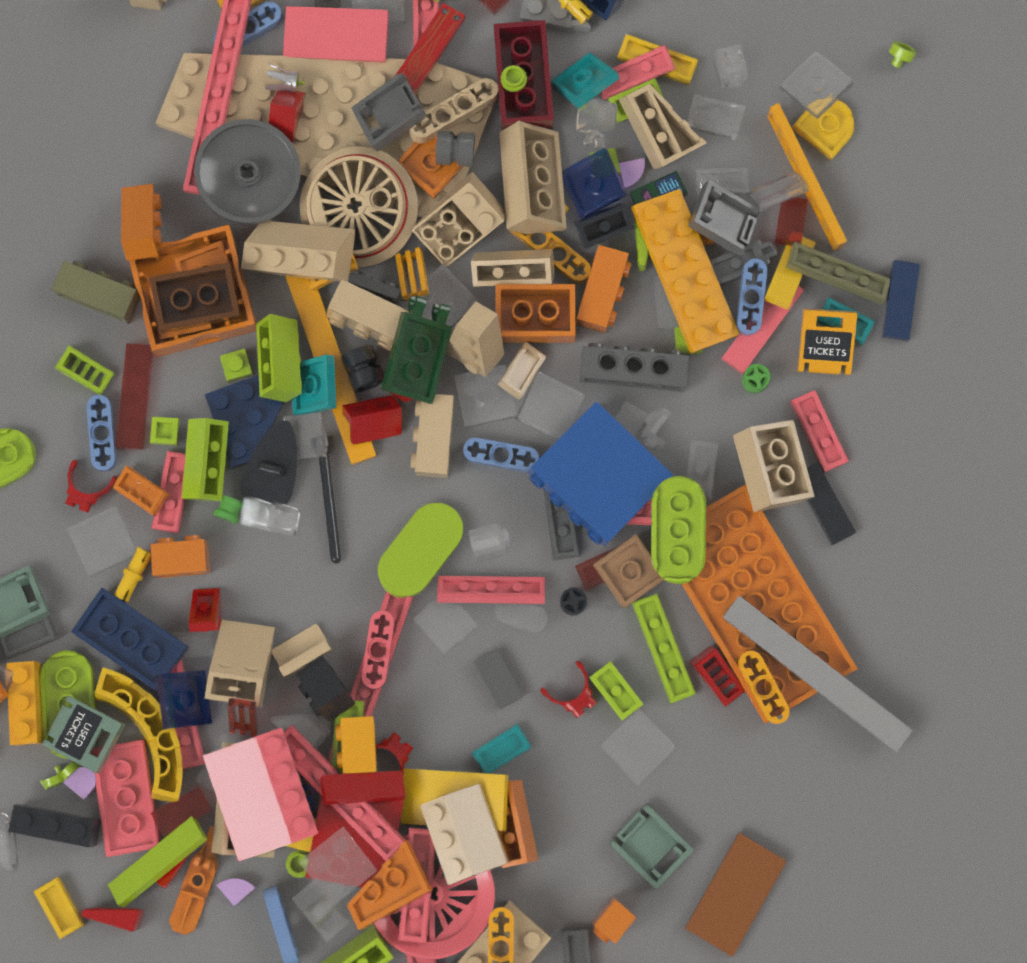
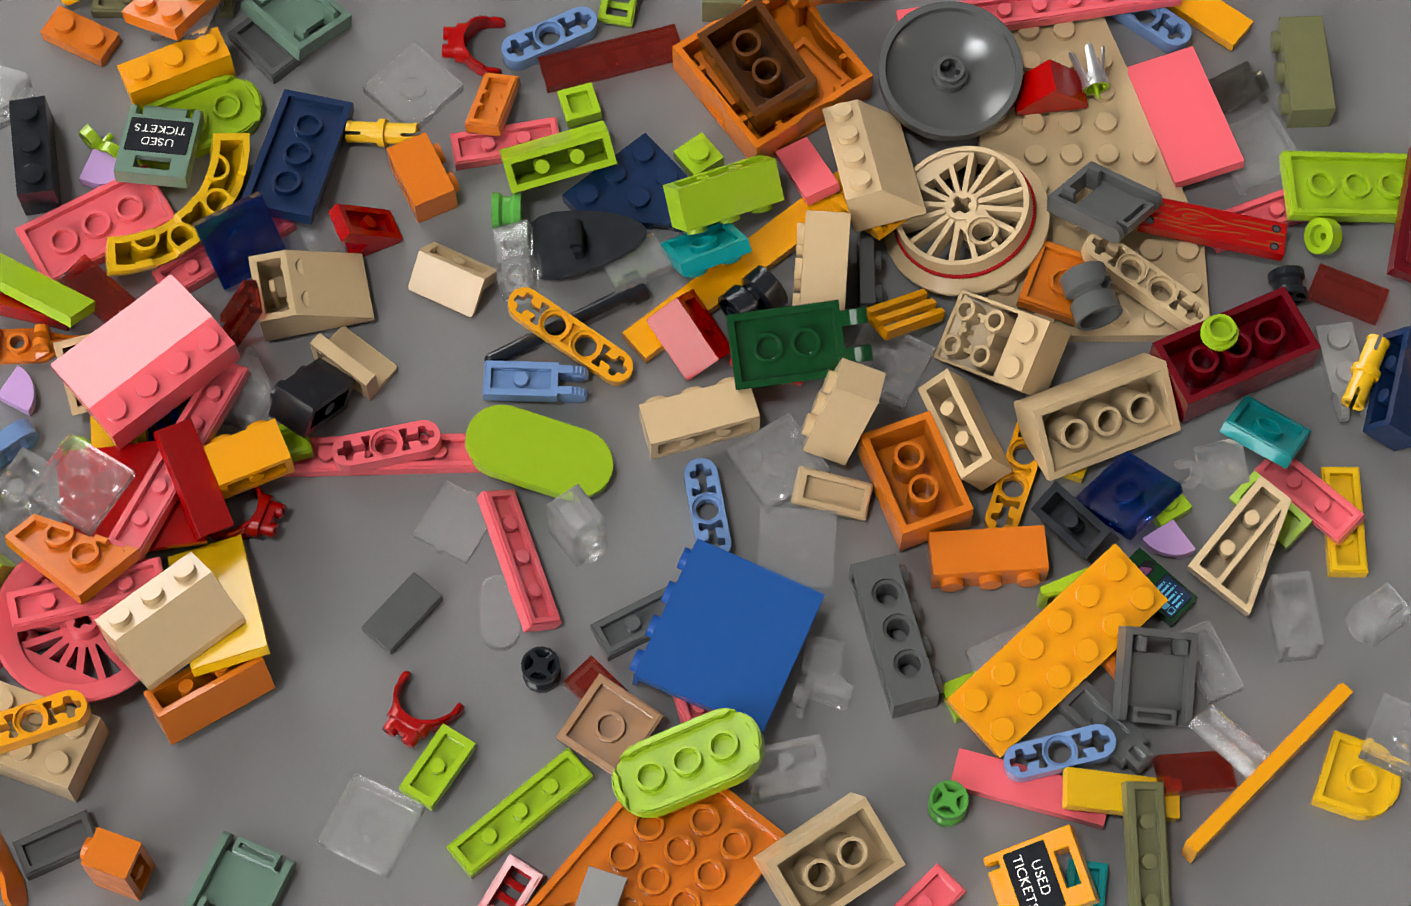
camera: 70 degrees right, 15 degrees down
(264, 564) = (450, 278): none -> tan panel
(278, 296) = (807, 171): none -> coral tile
(345, 503) = (573, 332): none -> light orange beam
(364, 538) = (533, 382): none -> medium blue hinge
(484, 21) = (1292, 278): none -> black wheel
(501, 749) = (308, 650): teal tile -> none

